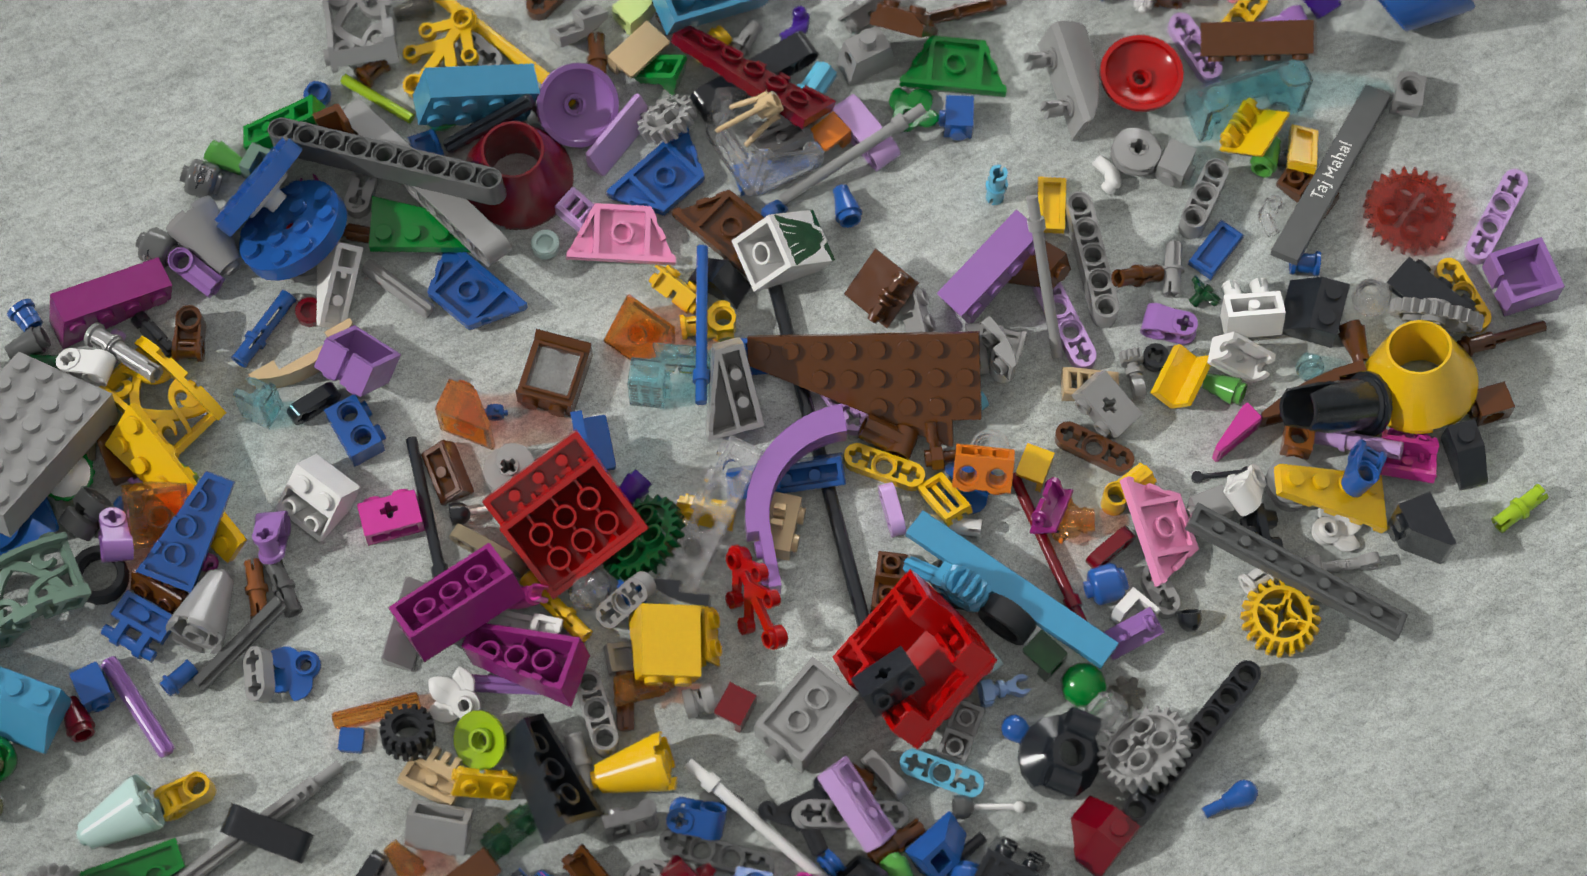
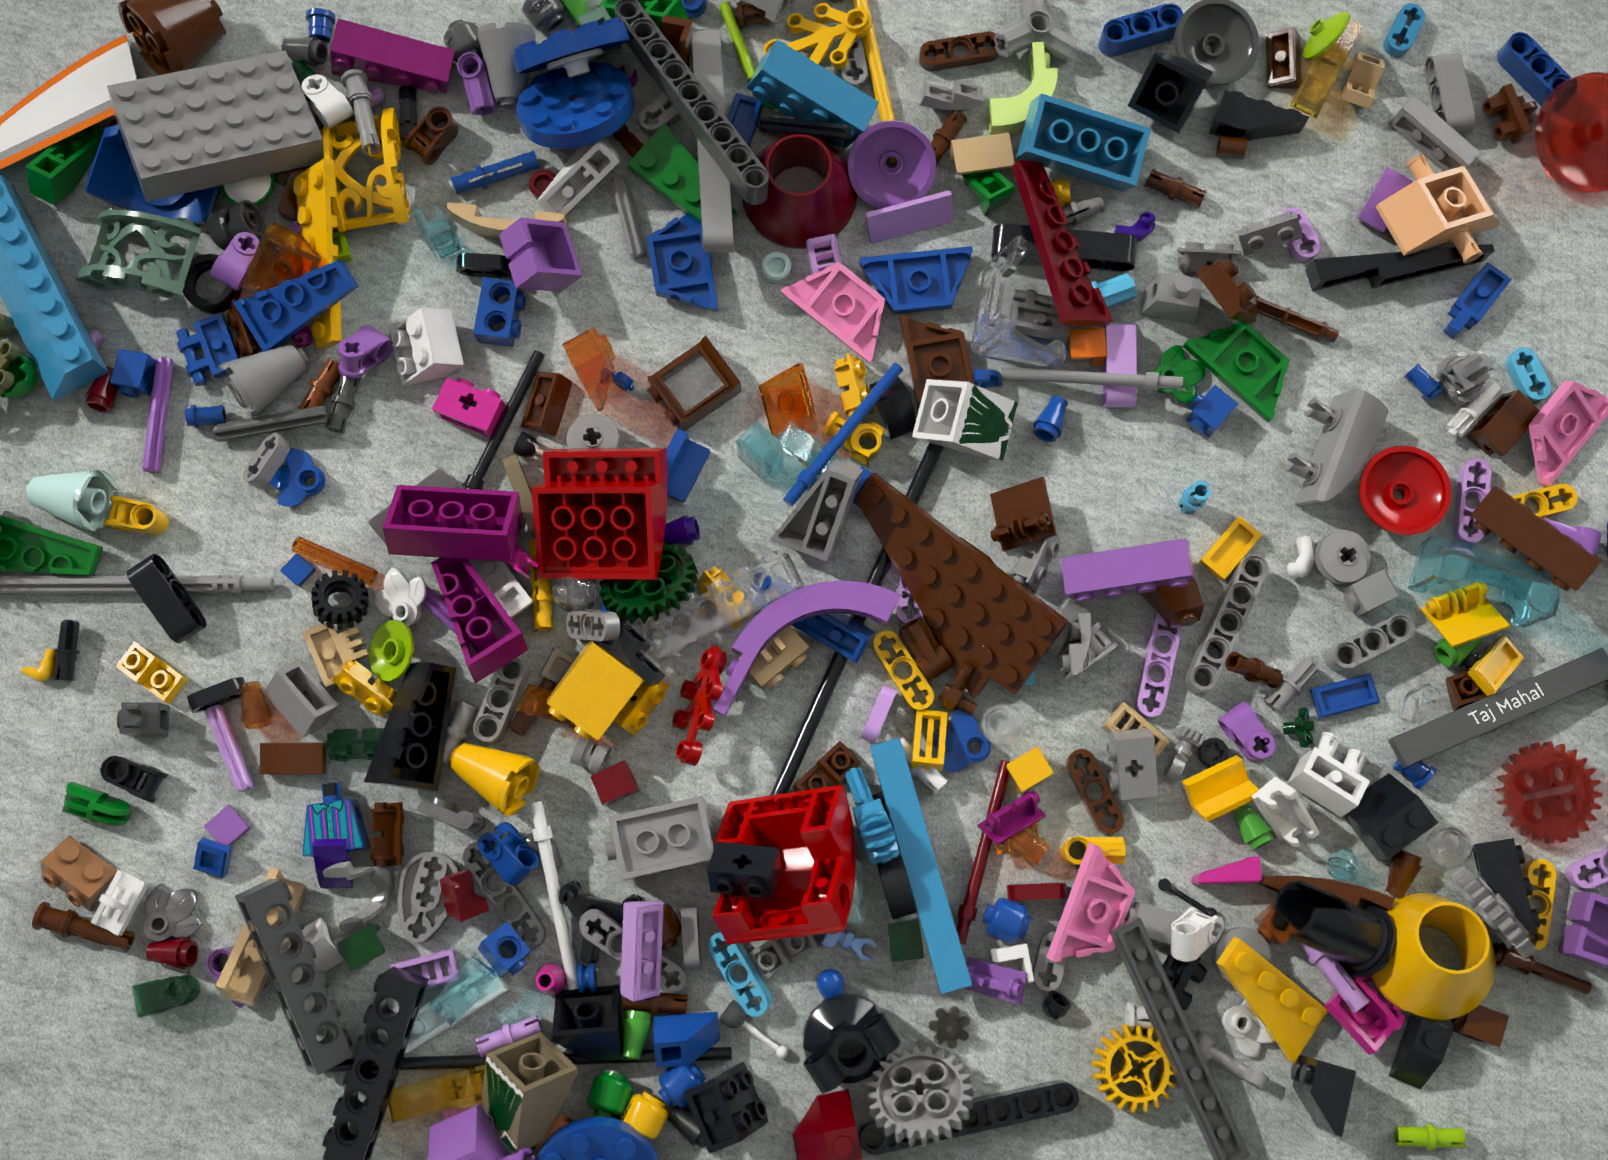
camera: 40 degrees right, 10 degrees up
(667, 119) = (958, 232): light grey gear -> none
(767, 106) = (1044, 284): tan plant -> none
(984, 461) = (984, 744): orange brick -> none
(1036, 226) = (1189, 569): light grey bar -> none
(1082, 683) = (918, 991): green hair -> none
(1111, 710) = (917, 1033): clear head -> none
(1362, 469) = (1313, 998): blue piece -> none

